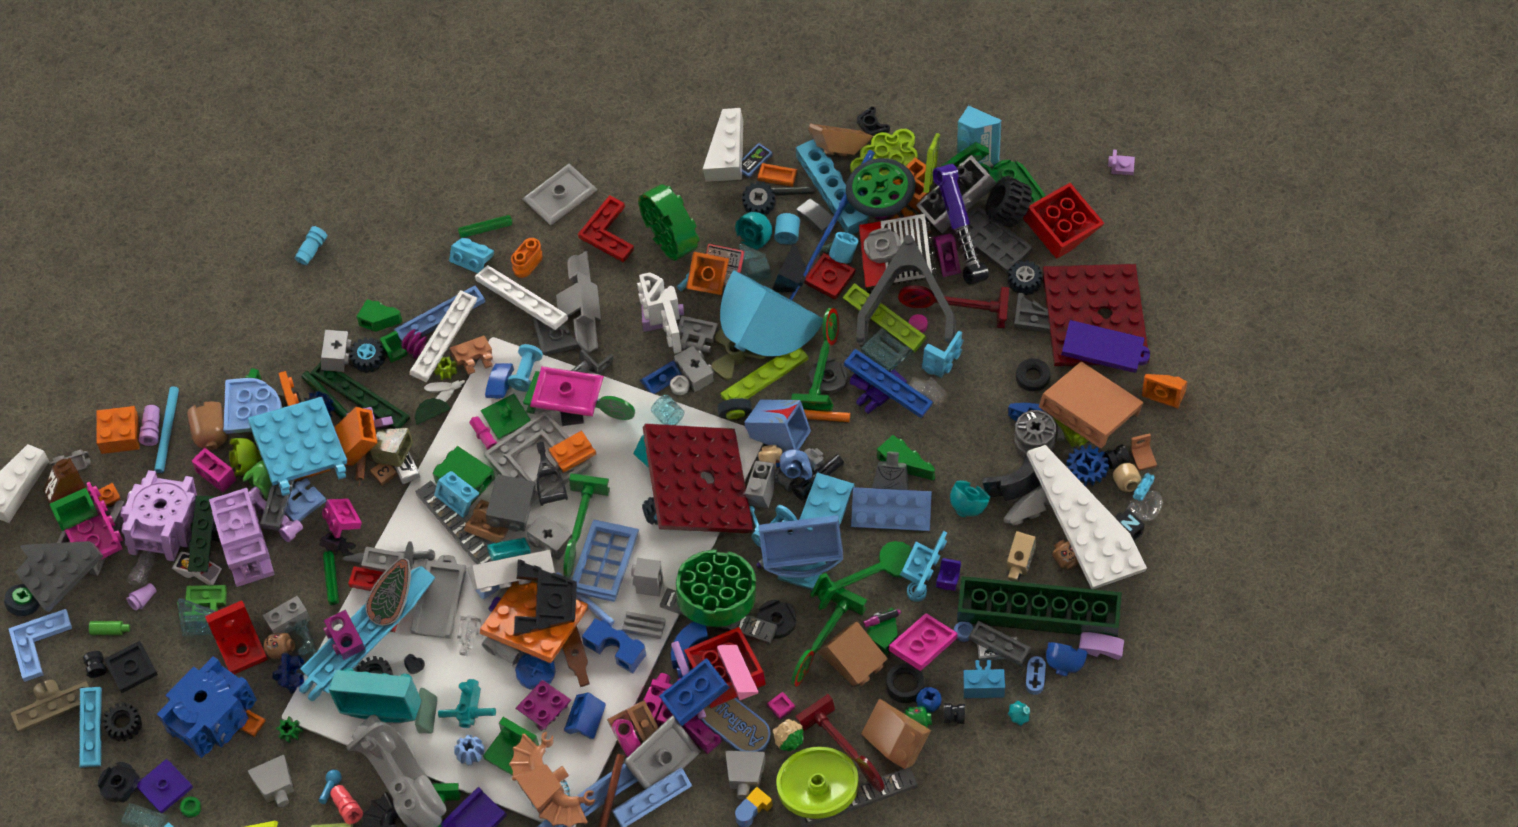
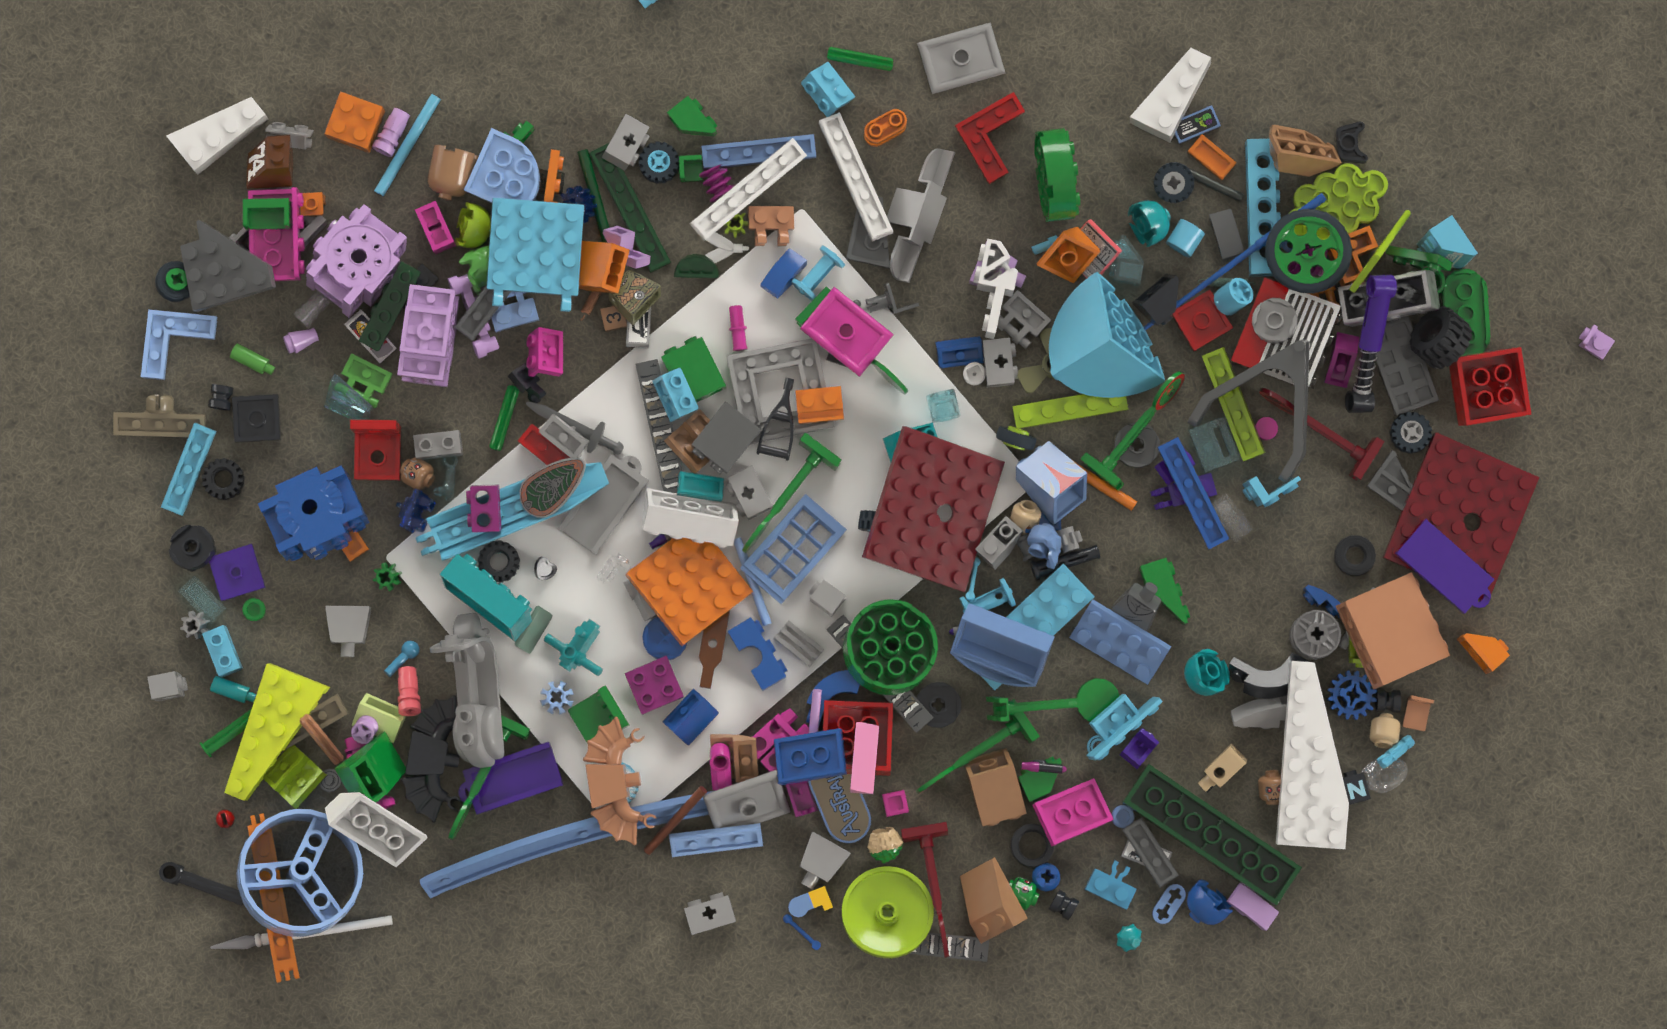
camera: 20 degrees right, 25 degrees up
(505, 416) = (772, 318): green piece -> none
(553, 601) = (716, 580): black wing -> none

